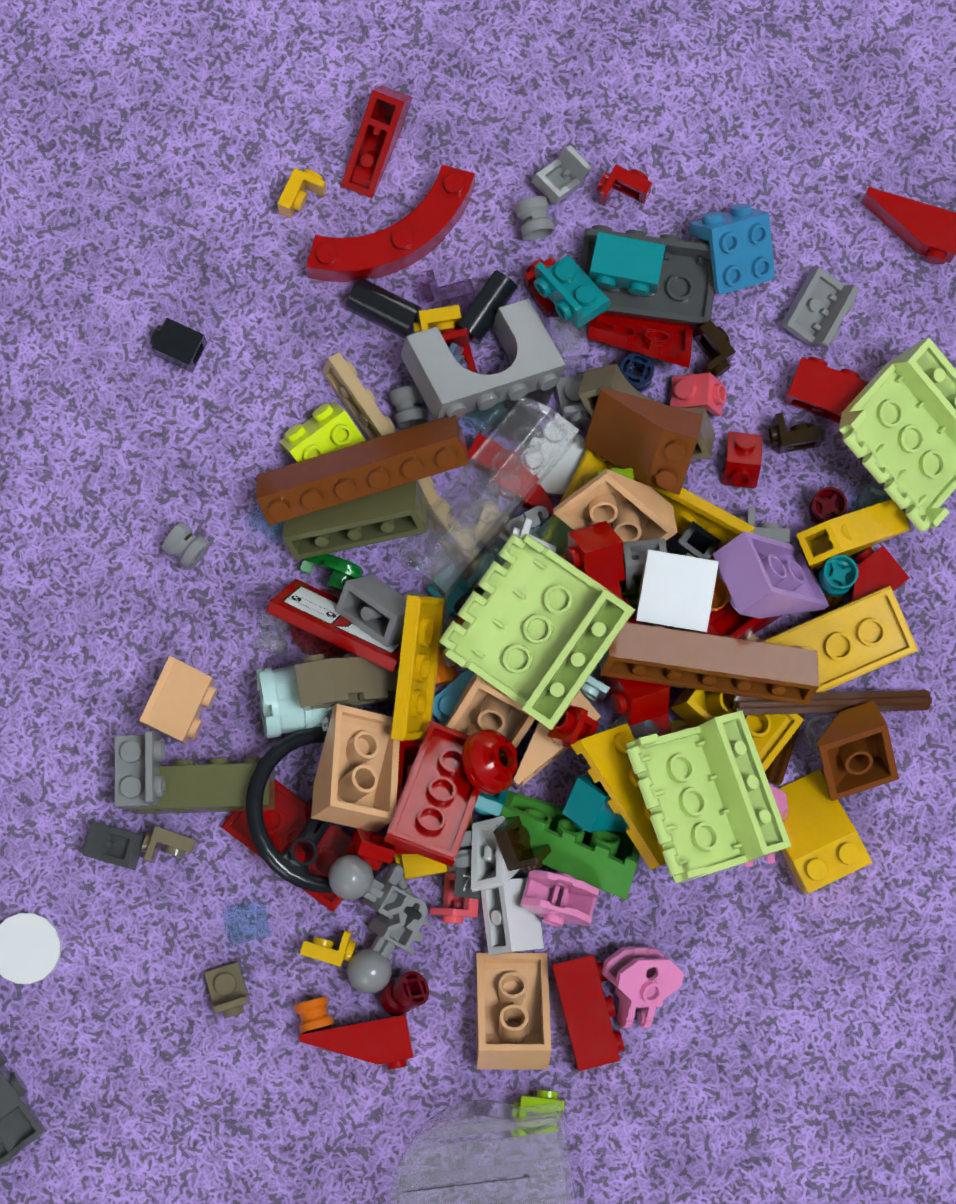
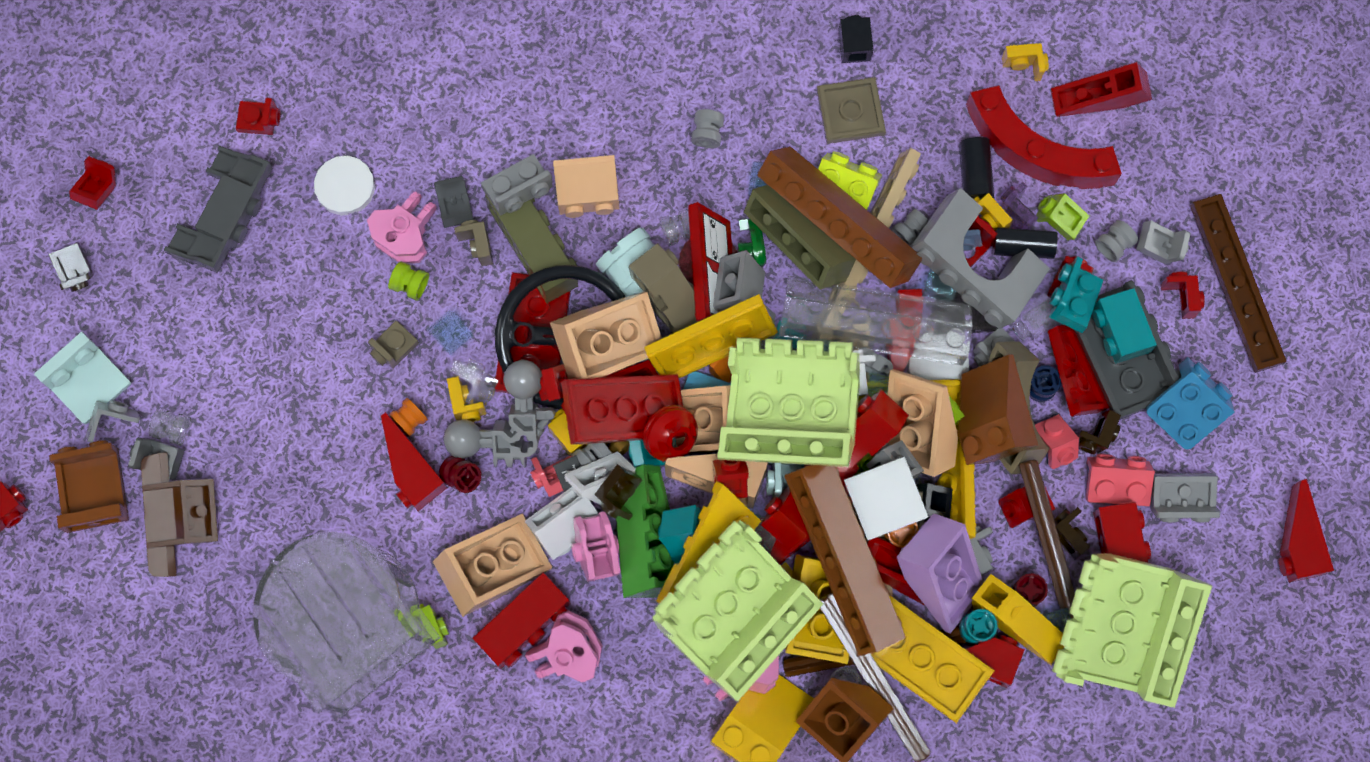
camera: 60 degrees right, 5 degrees down
(109, 912) = (399, 231): none -> bright pink hinge
(169, 937) = (408, 280): none -> lime wheel
(248, 392) = (851, 110): none -> dark tan tile
(308, 923) = (483, 383): none -> clear bracket
(477, 254) = (1062, 215): none -> lime bracket
(641, 130) = (1238, 283): none -> reddish brown plate
(768, 358) = (1119, 480): none -> coral bracket
(789, 457) = (1048, 533): none -> reddish brown axle

